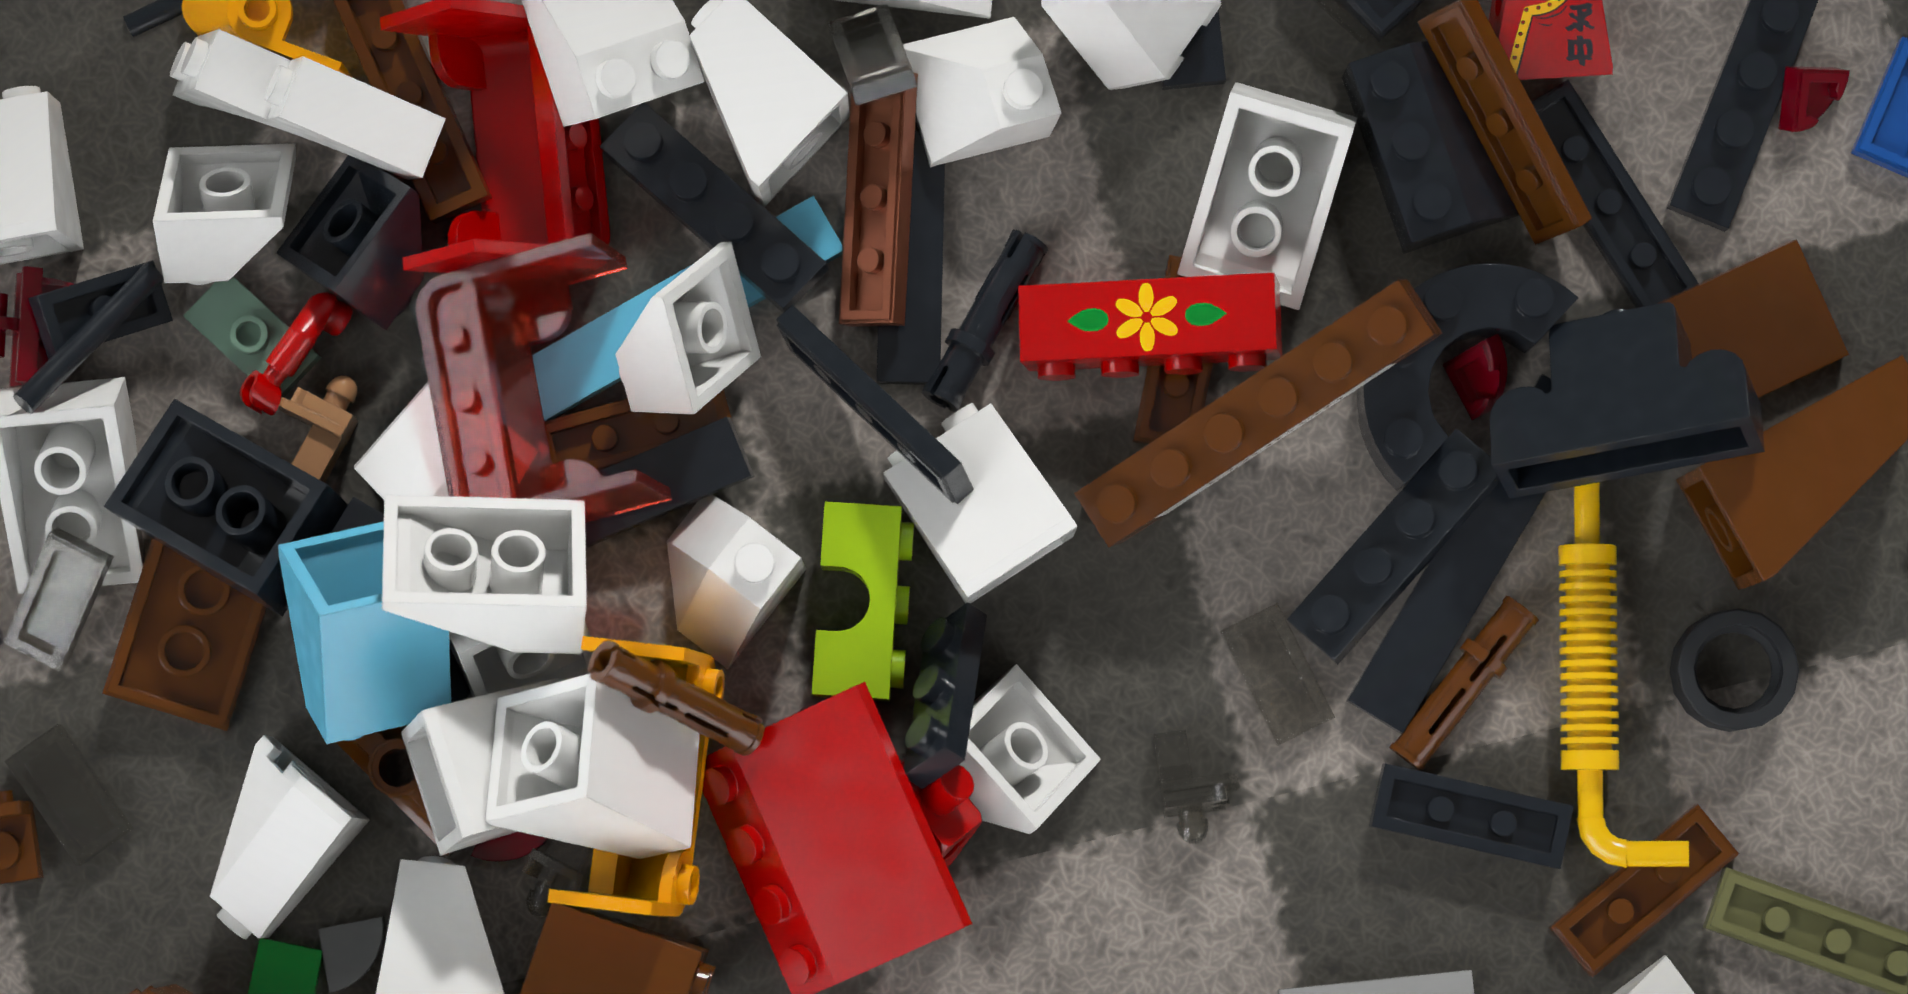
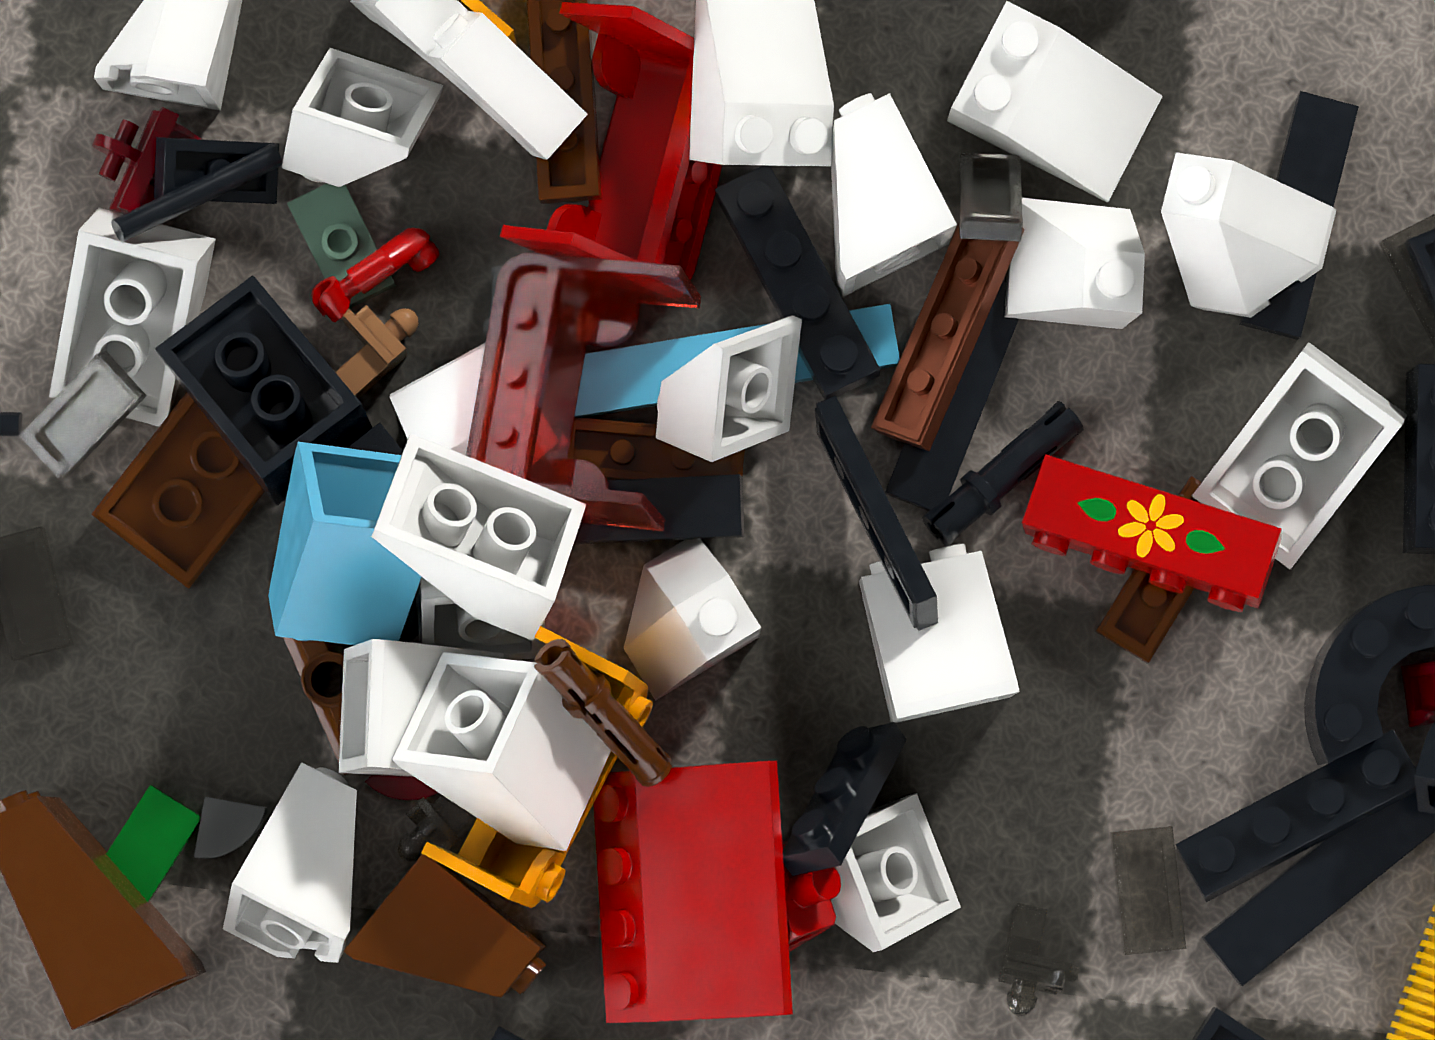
camera: 20 degrees right, 0 degrees up
(279, 840) = (200, 704): white slope -> none
(357, 240) = (468, 193): black slope -> none
(868, 544) = (824, 638): lime arch -> none
(1258, 412) = (1220, 649): reddish brown brick -> none
(1480, 662) = (1315, 961): reddish brown pin -> none

